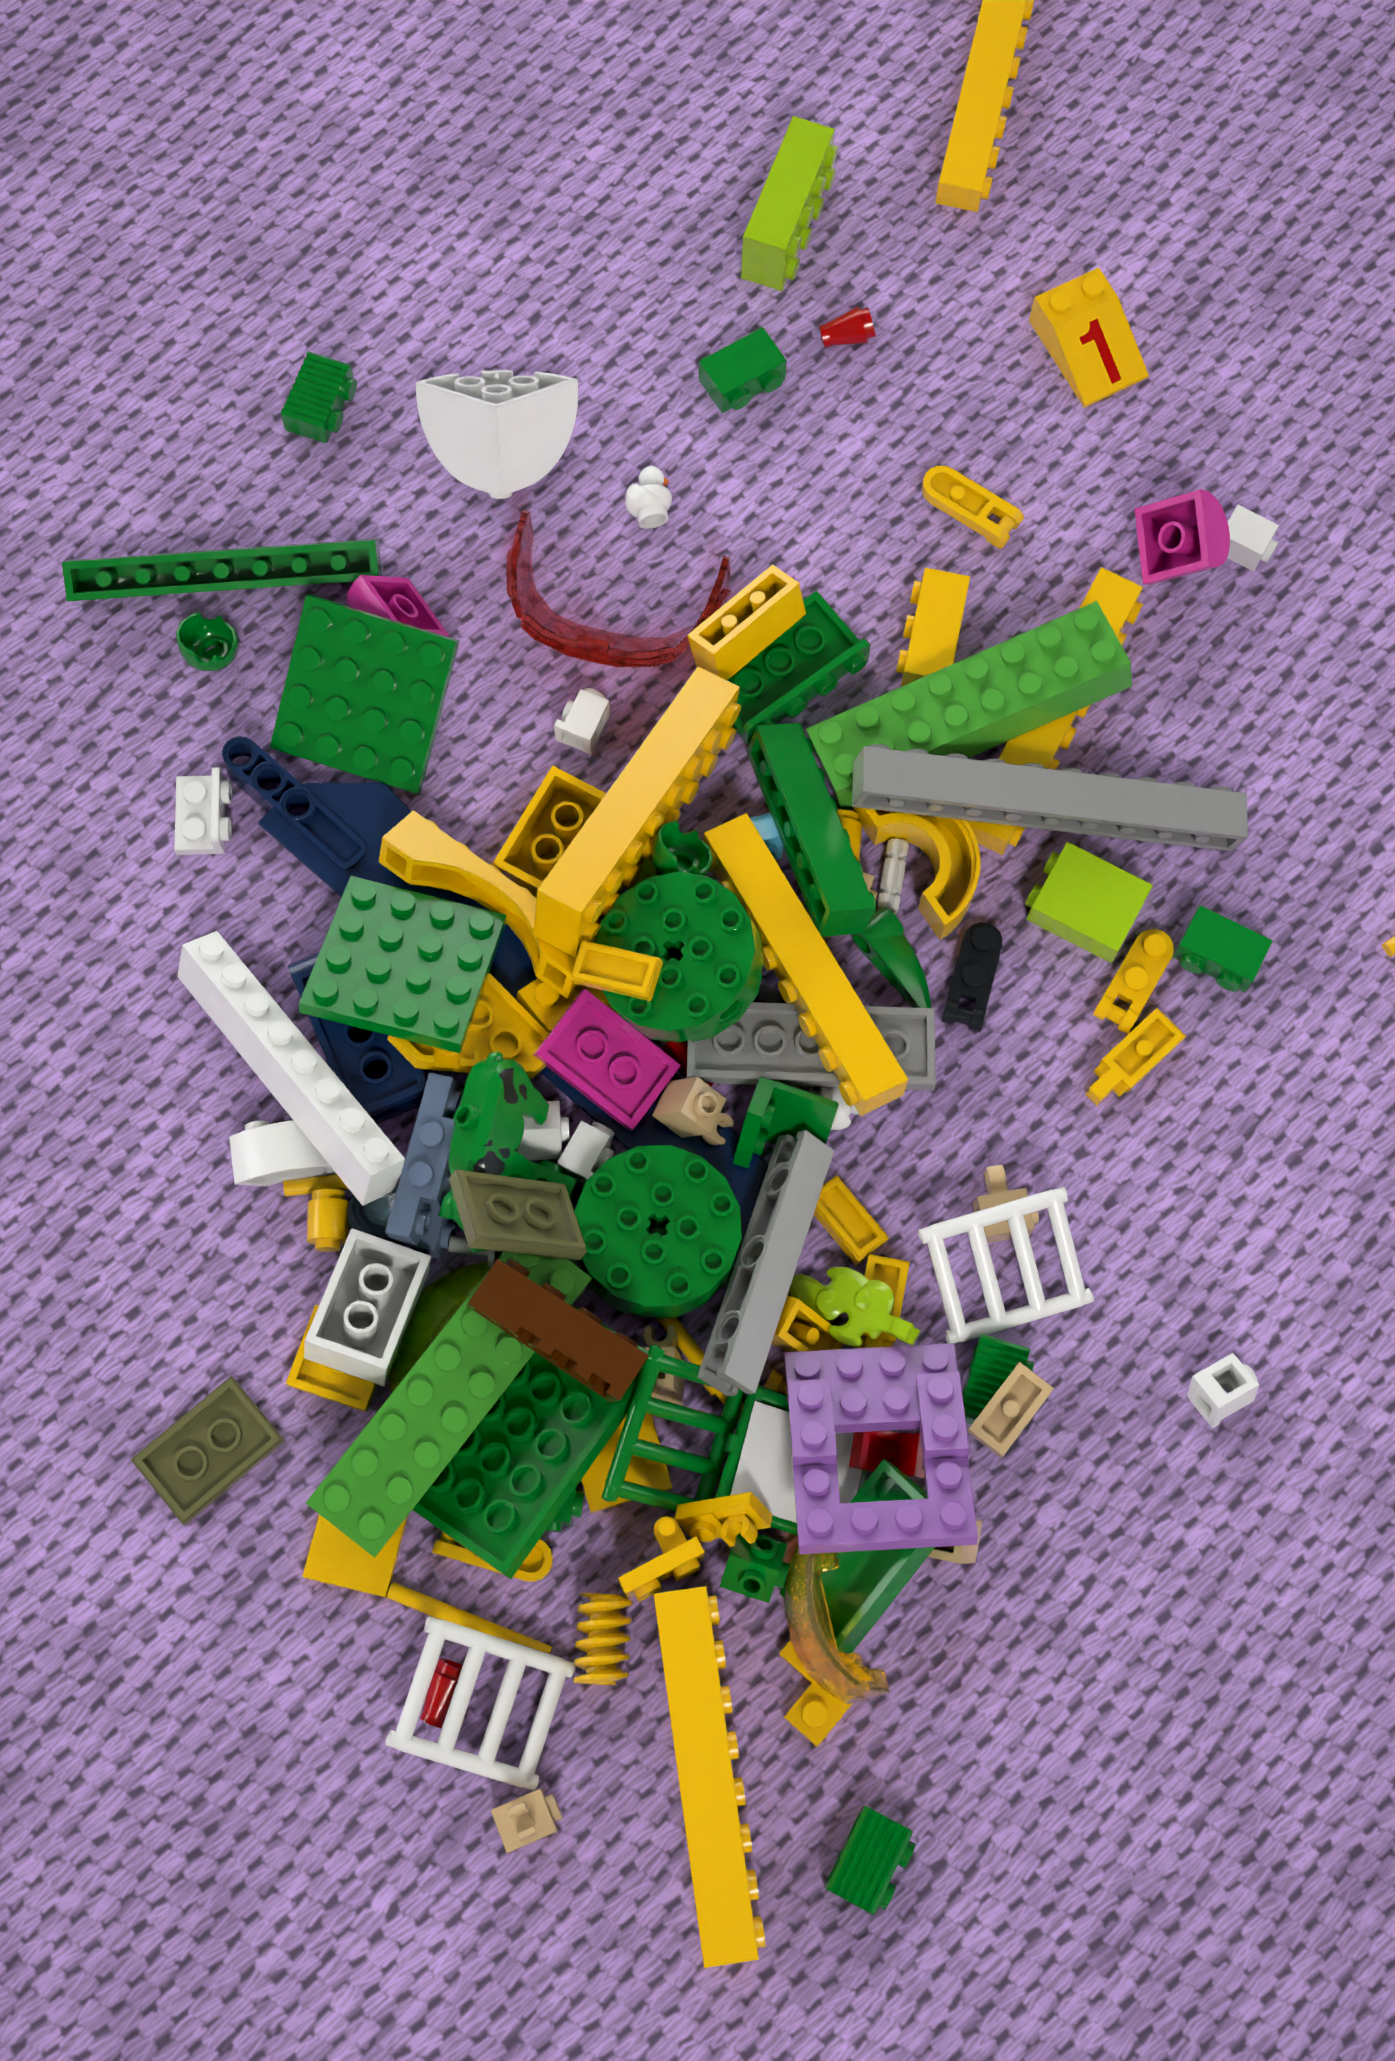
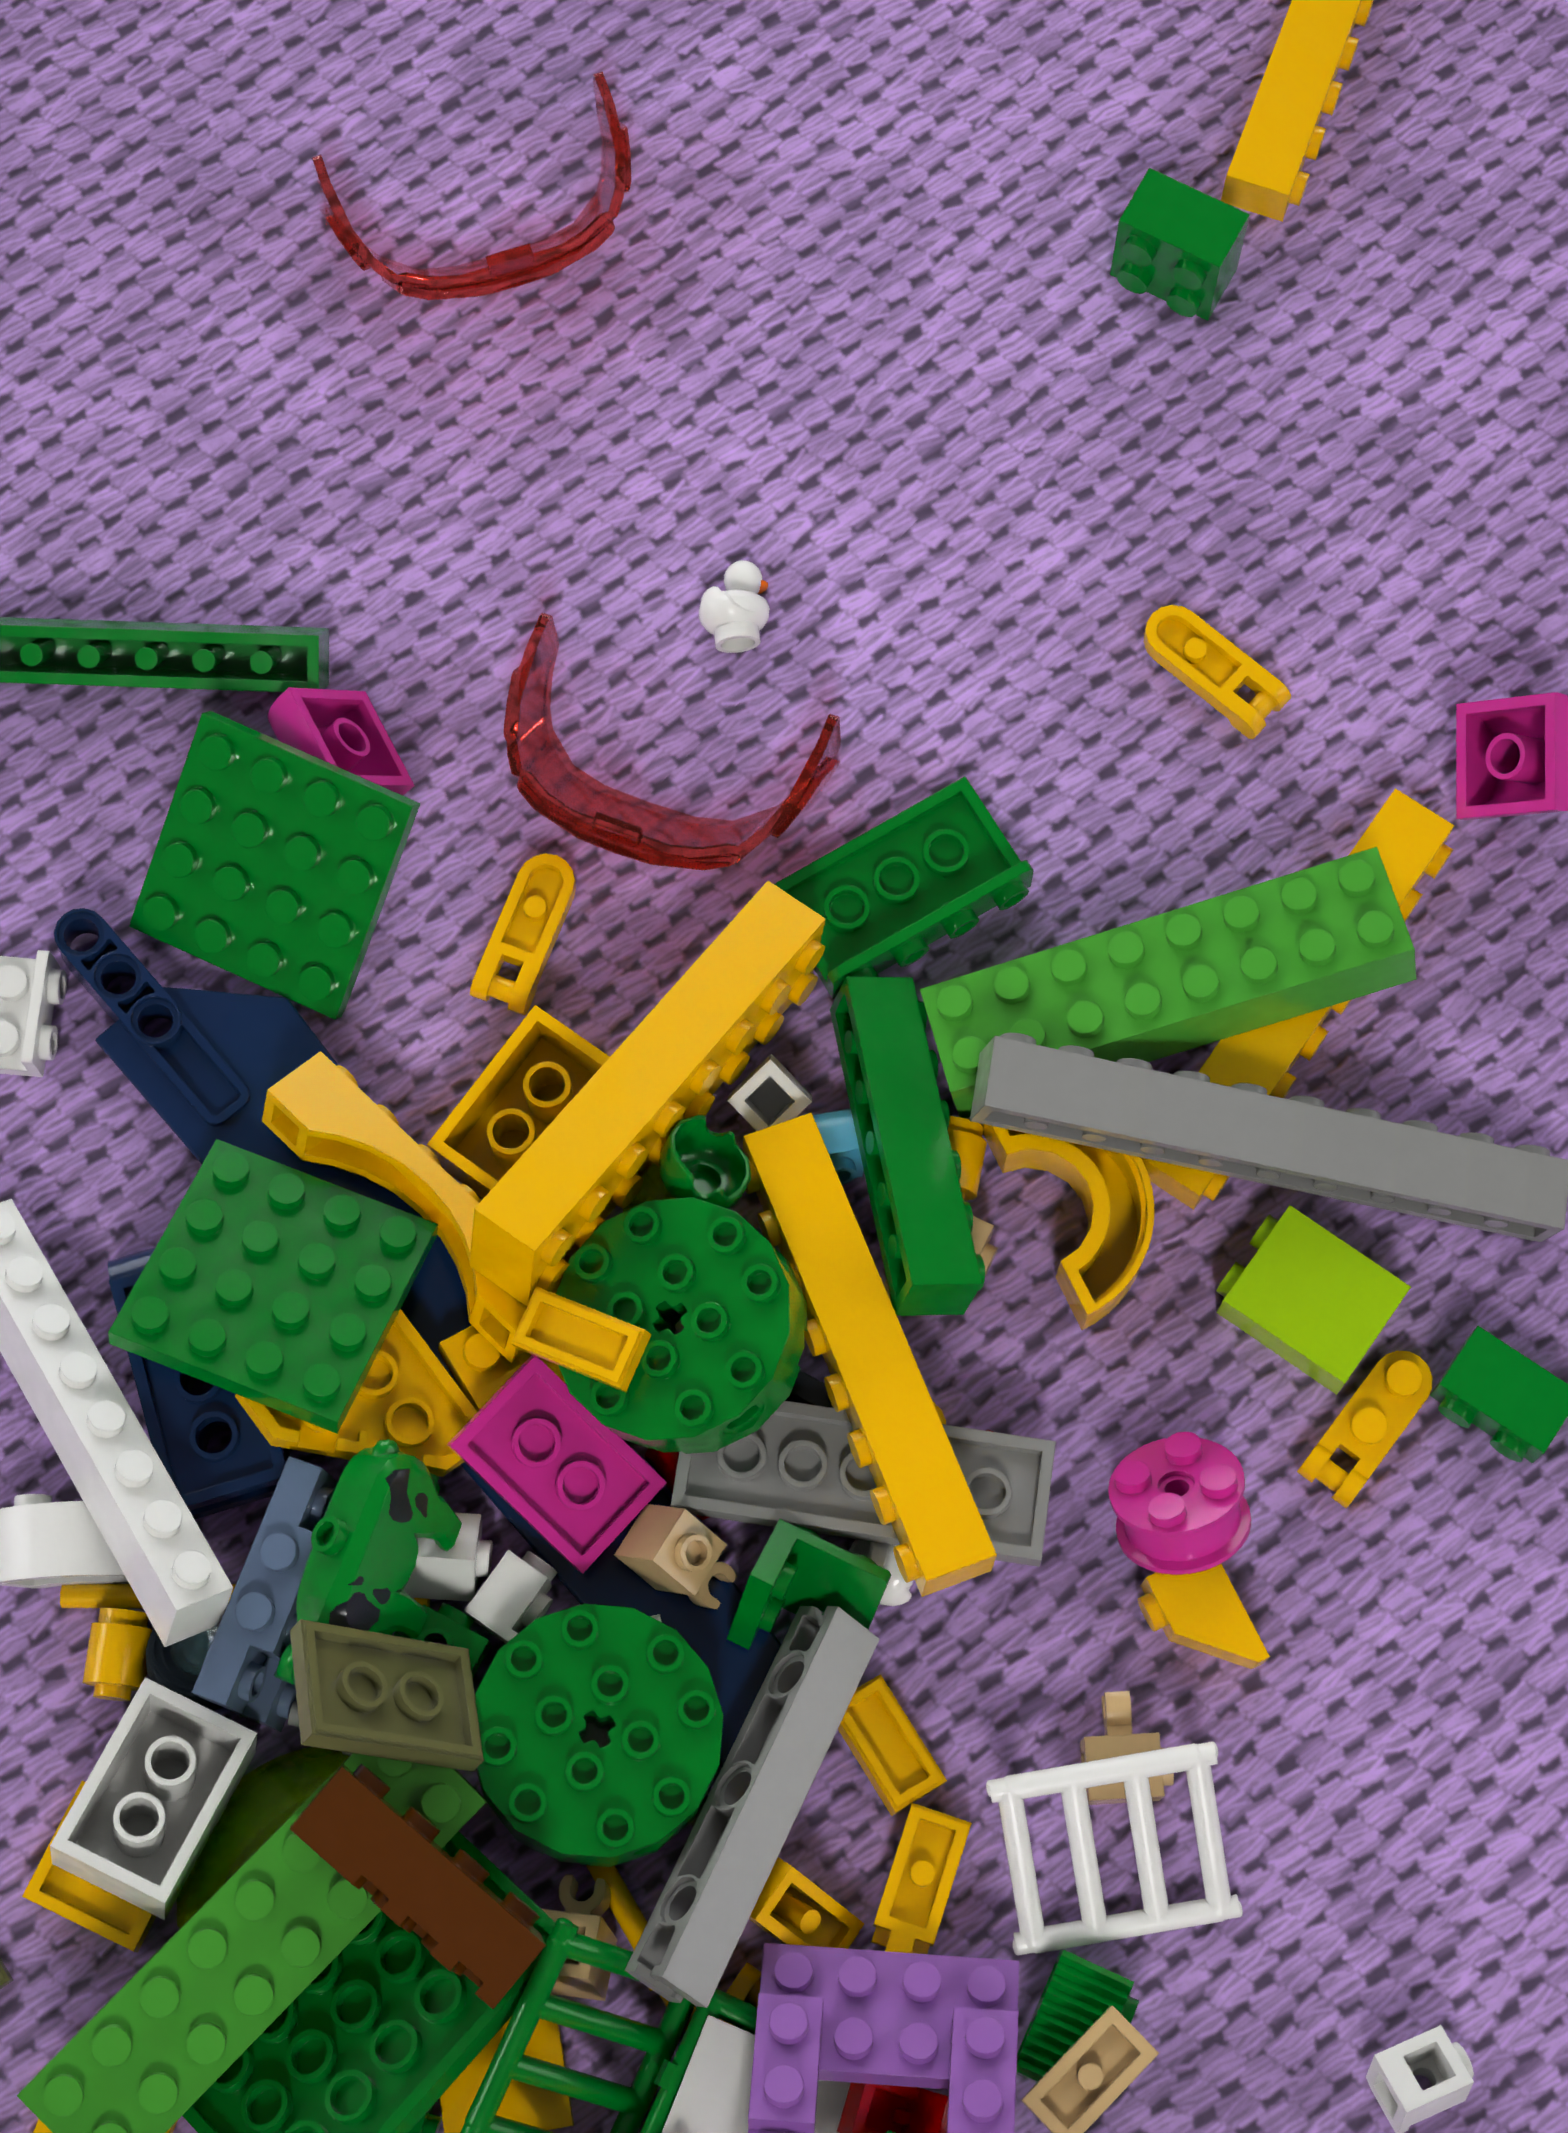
camera: 10 degrees right, 0 degrees up
(198, 633) = (48, 743): green hair -> none
(318, 397) = (270, 406): green brick -> none
(468, 287) = (515, 265): none -> clear red piece
(498, 427) = (524, 480): white brick -> none
(535, 723) = (526, 931): none -> yellow plate
(583, 720) = (594, 936): white brick -> none
(714, 808) = (769, 1095): none -> white brick
(742, 370) = (899, 430): green brick -> none
(747, 623) = (851, 821): yellow brick -> none
(789, 204) = (998, 186): lime brick -> none
(849, 328) = (1065, 381): red cone -> none
(863, 1300) = (896, 1879): lime piece -> none
(893, 874) = (1023, 1225): white axle -> none
(893, 957) = (1010, 1350): green piece -> none
(913, 230) = (1178, 245): none -> green brick
(935, 625) = (1134, 850): yellow brick -> none
(973, 975) = (1125, 1388): black plate -> none
(1020, 1040) = (1180, 1504): none -> dark pink wheel
(1043, 1109) = (1202, 1615): none -> yellow slope
(1088, 337) = (1423, 431): yellow slope -> none
(1135, 1056) = (1353, 1544): yellow hinge -> none

